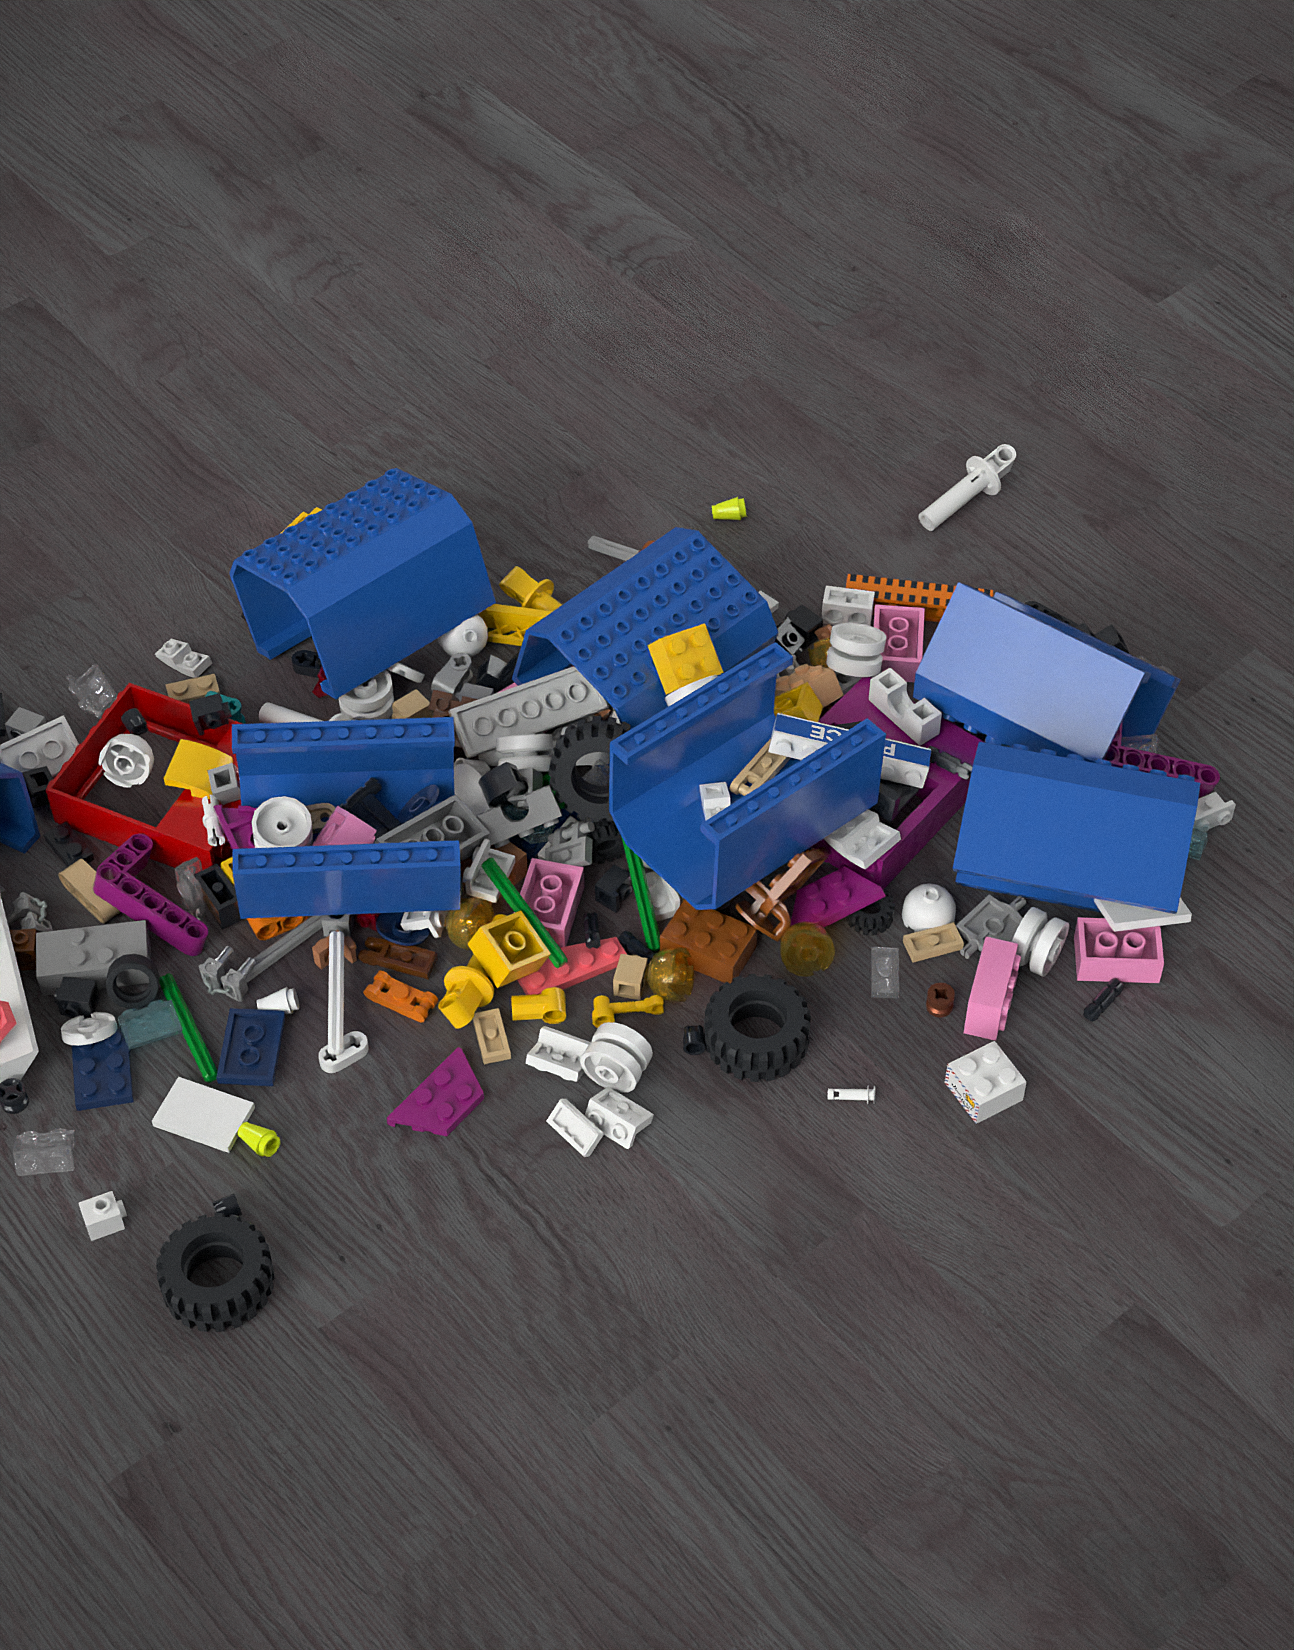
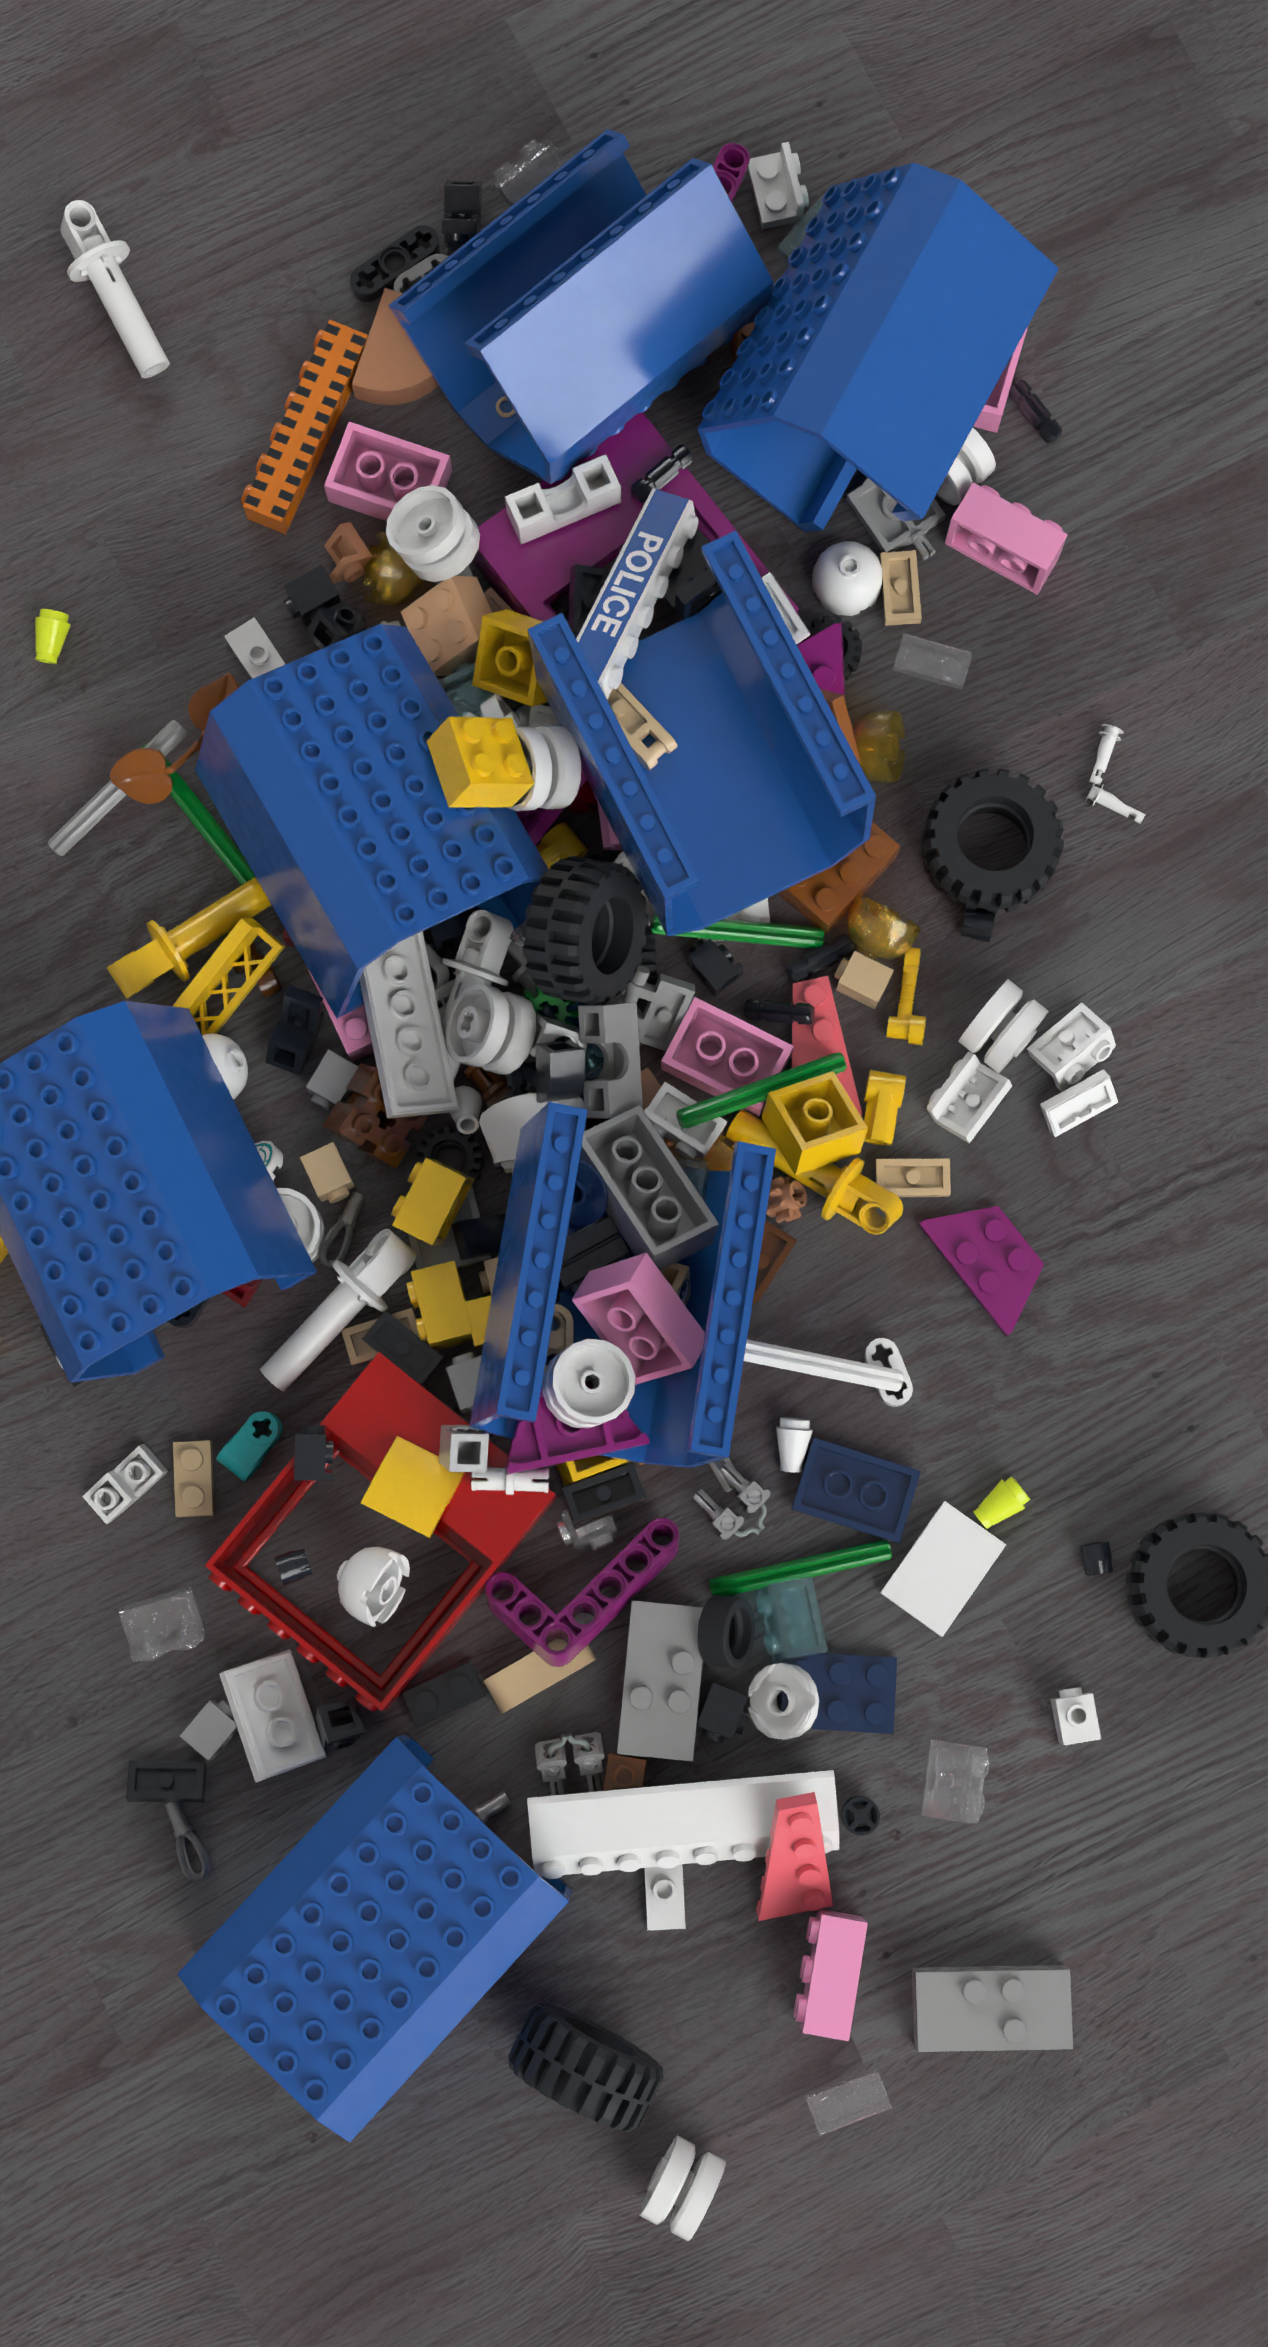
camera: 75 degrees left, 30 degrees up
(400, 997) = (818, 1282): orange plate -> none
(449, 953) = (786, 1199): none -> nougat gear
(453, 674) = (283, 1105): light grey piece -> none
(714, 798) = (684, 793): white slope -> none
(820, 1097) = (1112, 802): none -> white piece
(847, 606) = (302, 524): white brick -> none
(943, 1006) = (989, 614): copper wheel -> none
(985, 1082) = (1132, 590): white brick -> none

